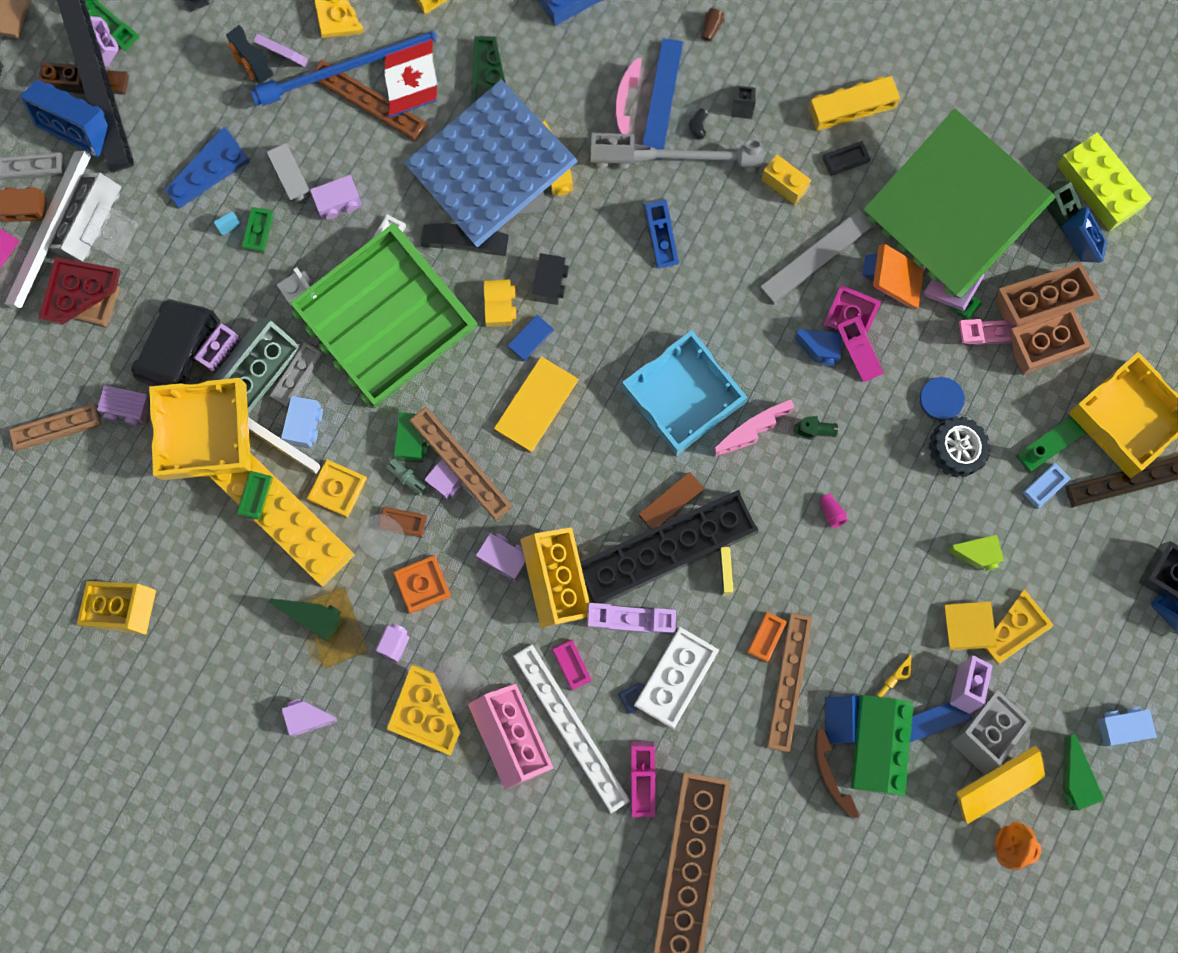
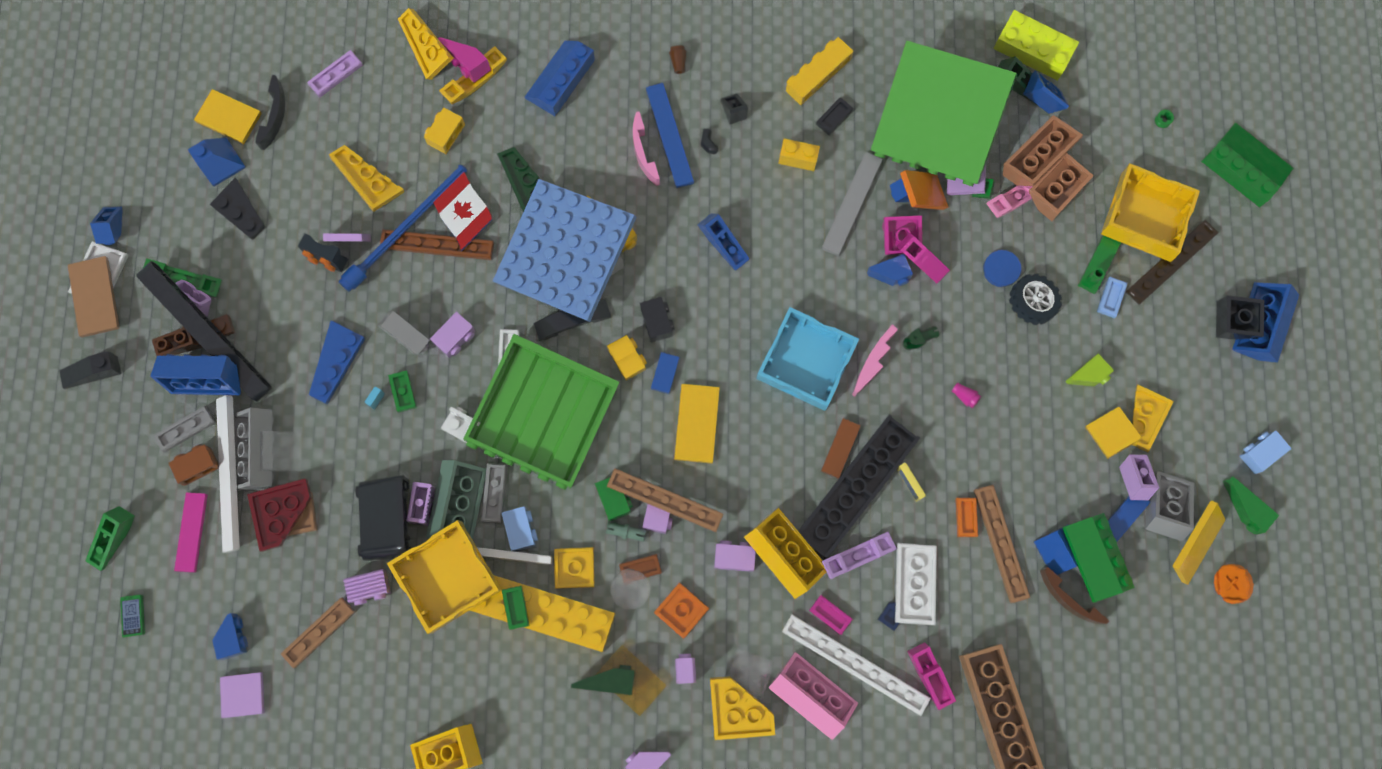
camera: 30 degrees left, 0 degrees up
(623, 151) = (662, 190): light grey bar -> none
(897, 675) = (1078, 497): yellow hand -> none

